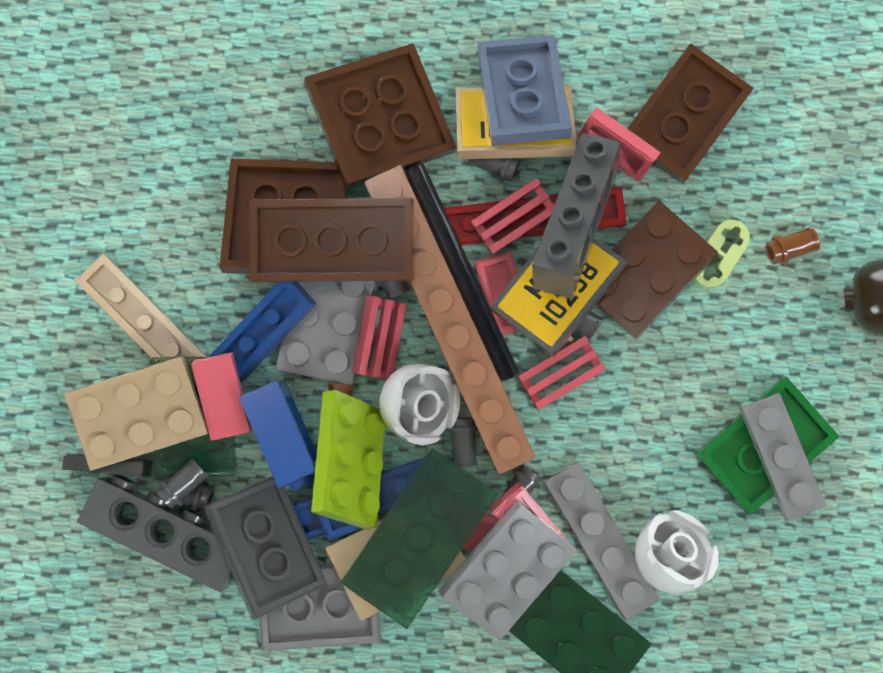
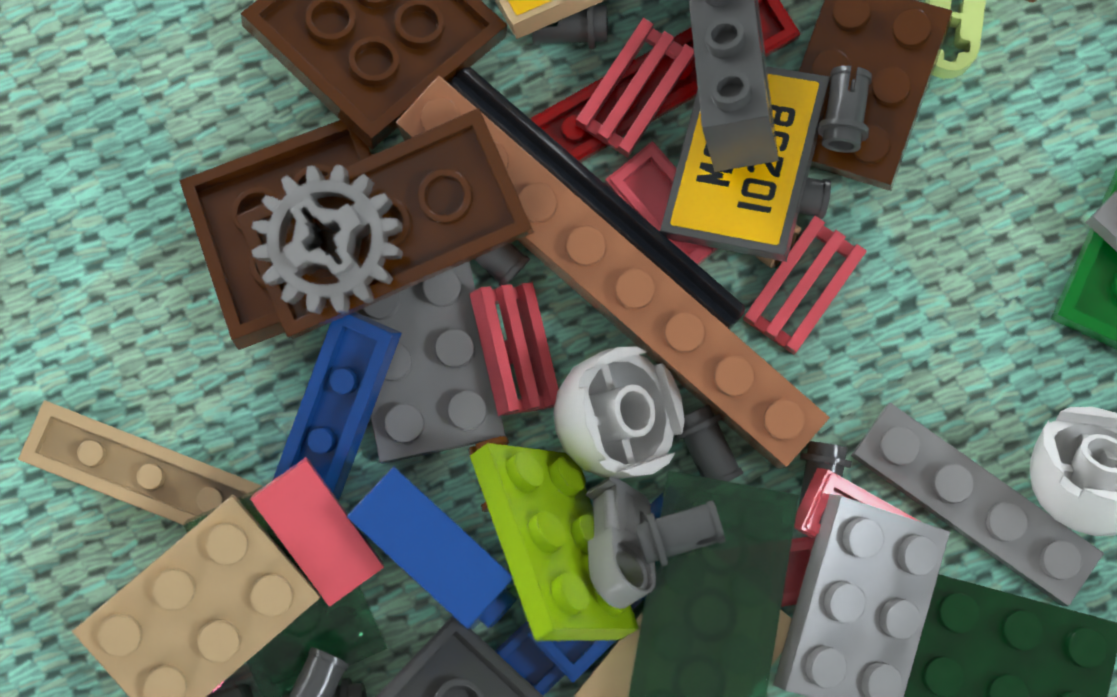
camera: 30 degrees left, 5 degrees down
(290, 220) = (349, 221): none -> light grey gear
(389, 473) = (615, 551): none -> light grey piece
(419, 486) = (679, 532): none -> dark grey pin
(626, 286) = (845, 114): none -> dark grey pin

